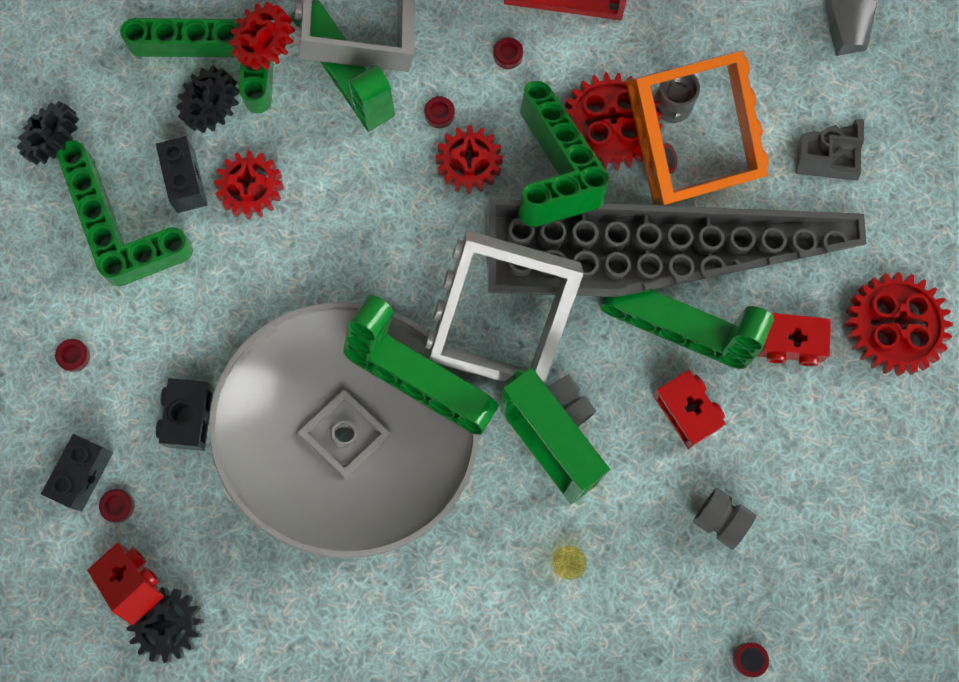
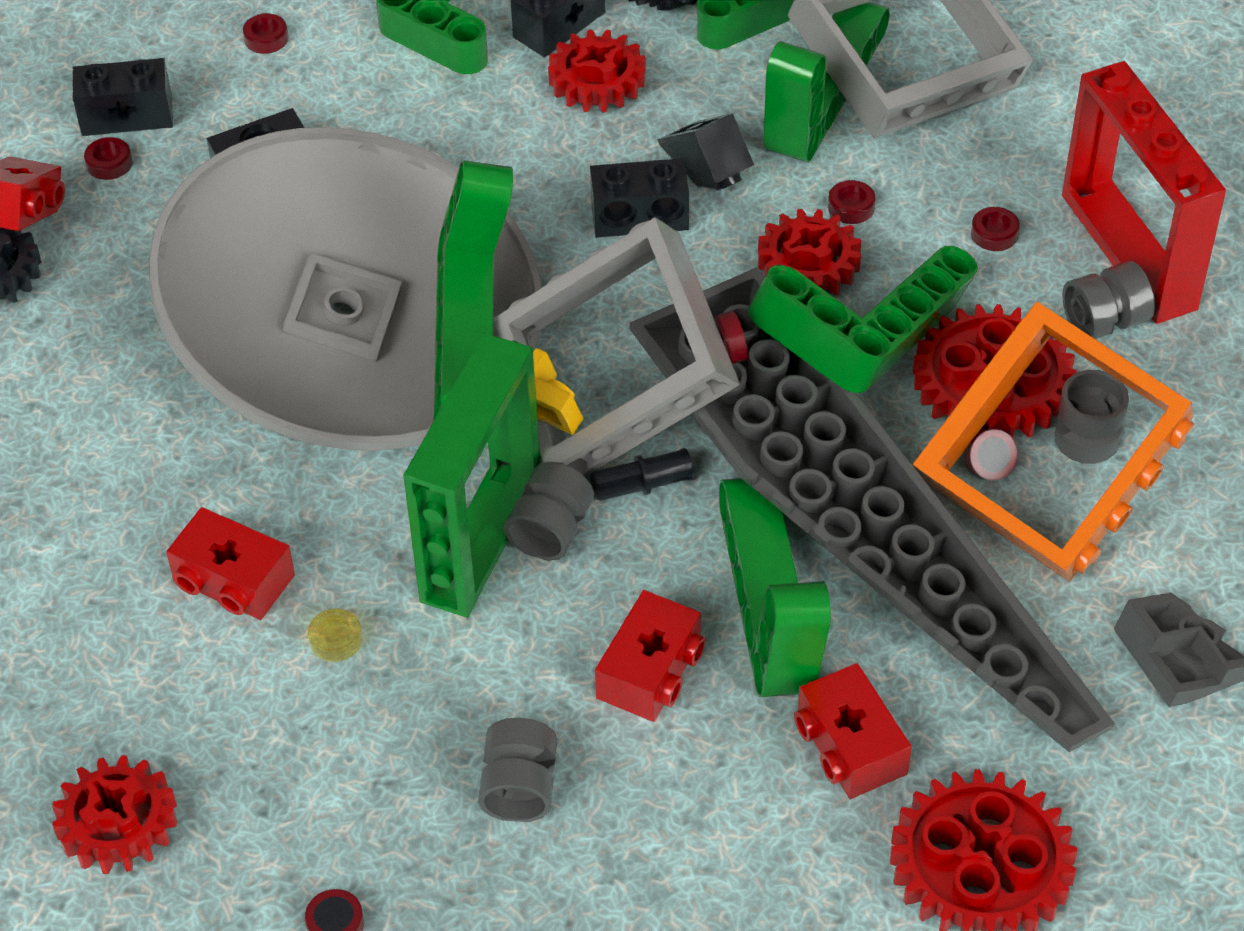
camera: 60 degrees right, 25 degrees down
(355, 163) = (711, 151): none -> black slope
(369, 222) = (637, 193): none -> black brick
(504, 580) = (230, 564): none -> red brick
(516, 362) = (554, 399): none -> yellow bracket
(542, 244) = (732, 336): none -> dark red tile
(566, 343) = (642, 475): none -> black axle
(605, 33) = (1116, 297): none -> dark grey wheel

